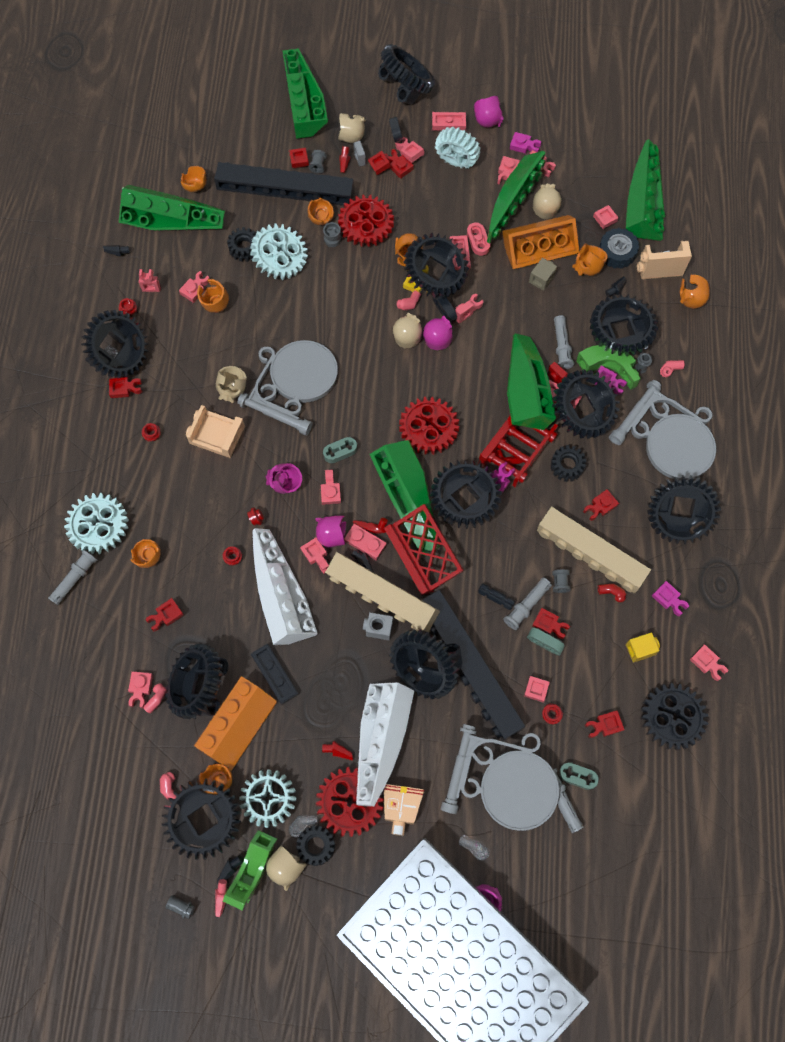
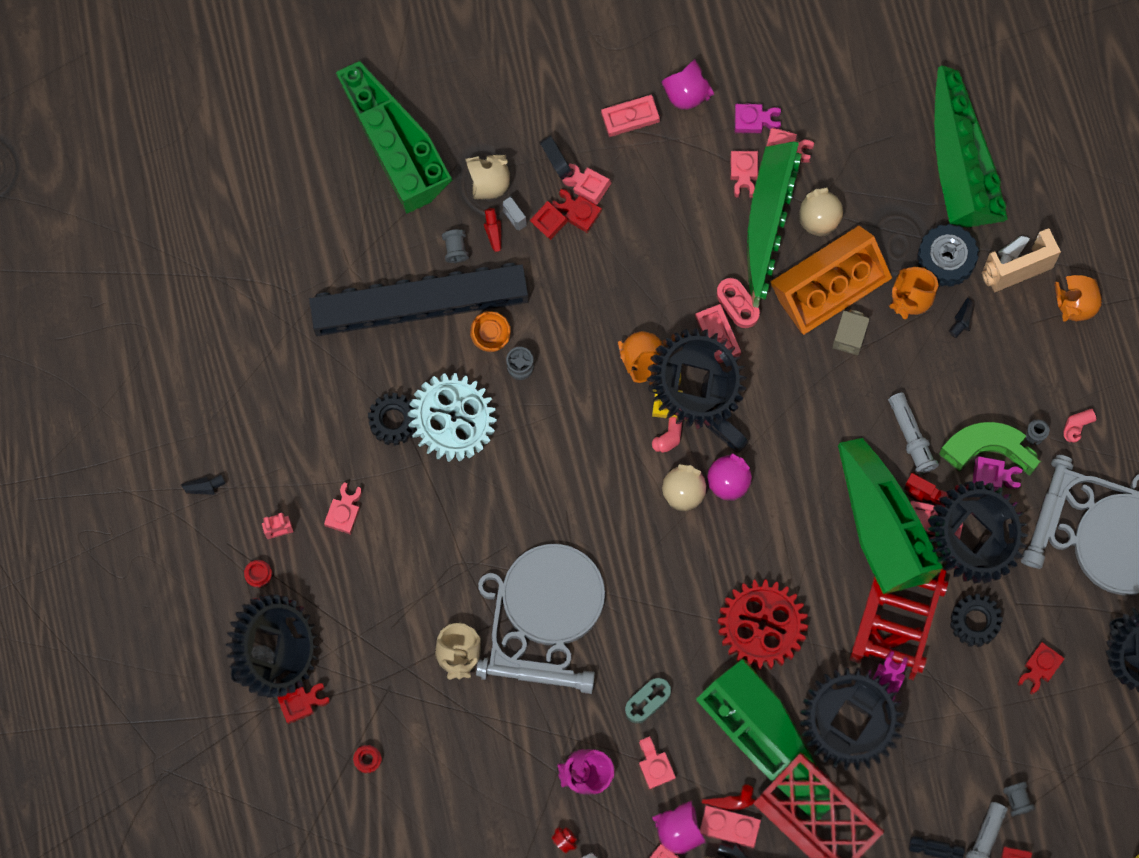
camera: 15 degrees left, 5 degrees up
(165, 211) = (259, 400): green wedge -> none
(194, 179) = (280, 335): orange hair -> none
(214, 298) = (383, 522): orange helmet -> none
(215, 432) = (460, 730): light nougat panel -> none
(298, 157) = (424, 248): red plate -> none
(366, 220) = (571, 302): red gear -> none
(412, 82) = (555, 54): black piece -> none
(457, 147) = (661, 164): light aqua gear -> none
(466, 310) = (754, 428): coral plate -> none
(593, 550) = (1049, 740): tan brick -> none
(605, 217) = (914, 209): coral plate -> none
(612, 589) = (1093, 787): red arm -> none
(640, 327) = (1014, 378): black piece -> none

